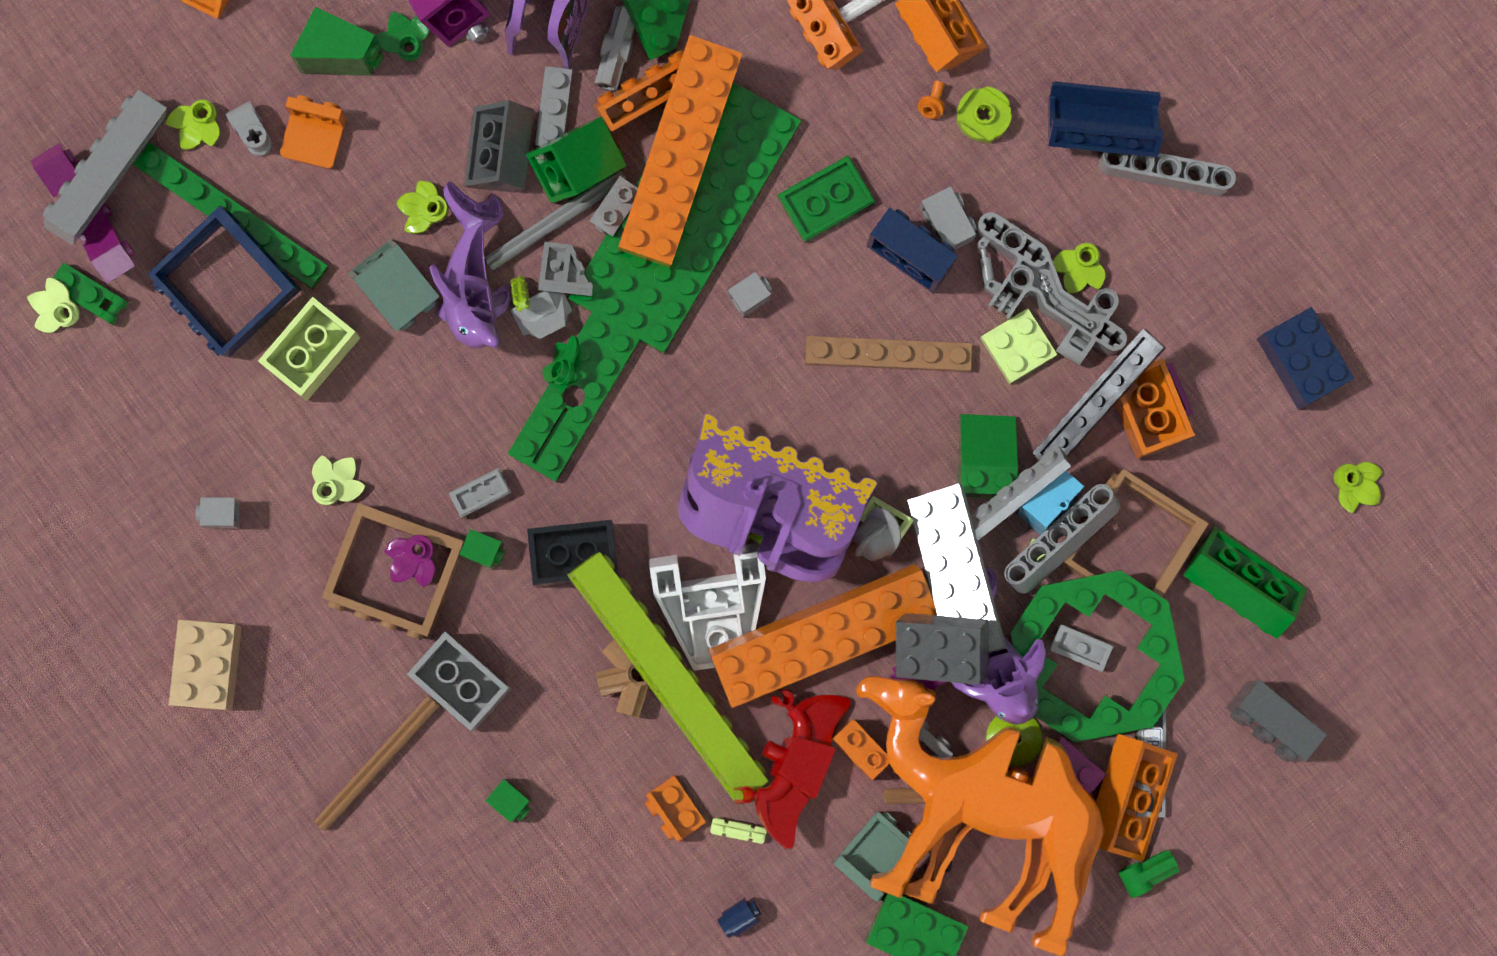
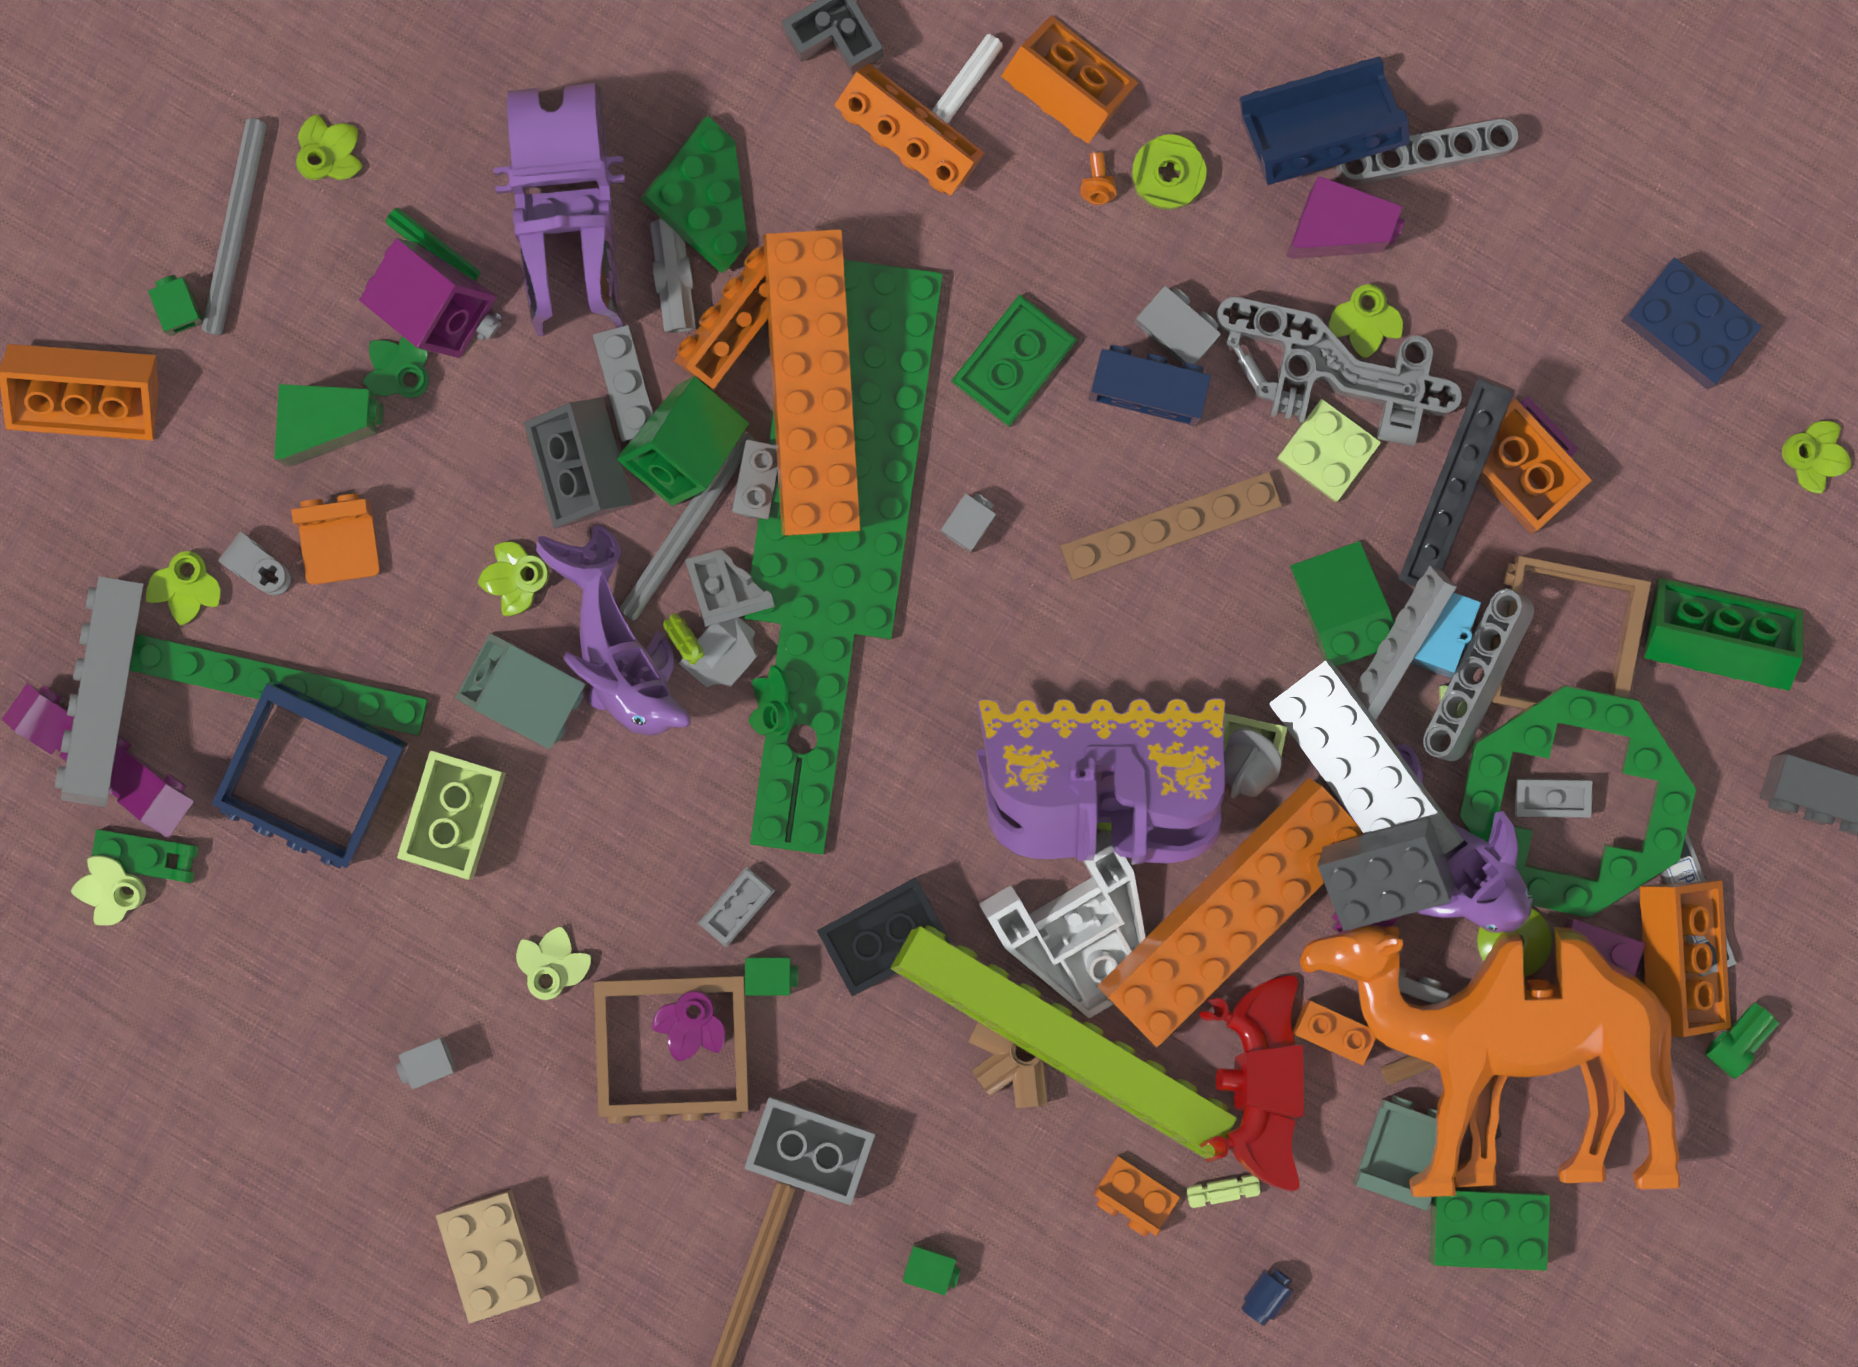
camera: 20 degrees left, 5 degrees up
(1091, 193) = (1344, 222): none -> magenta slope

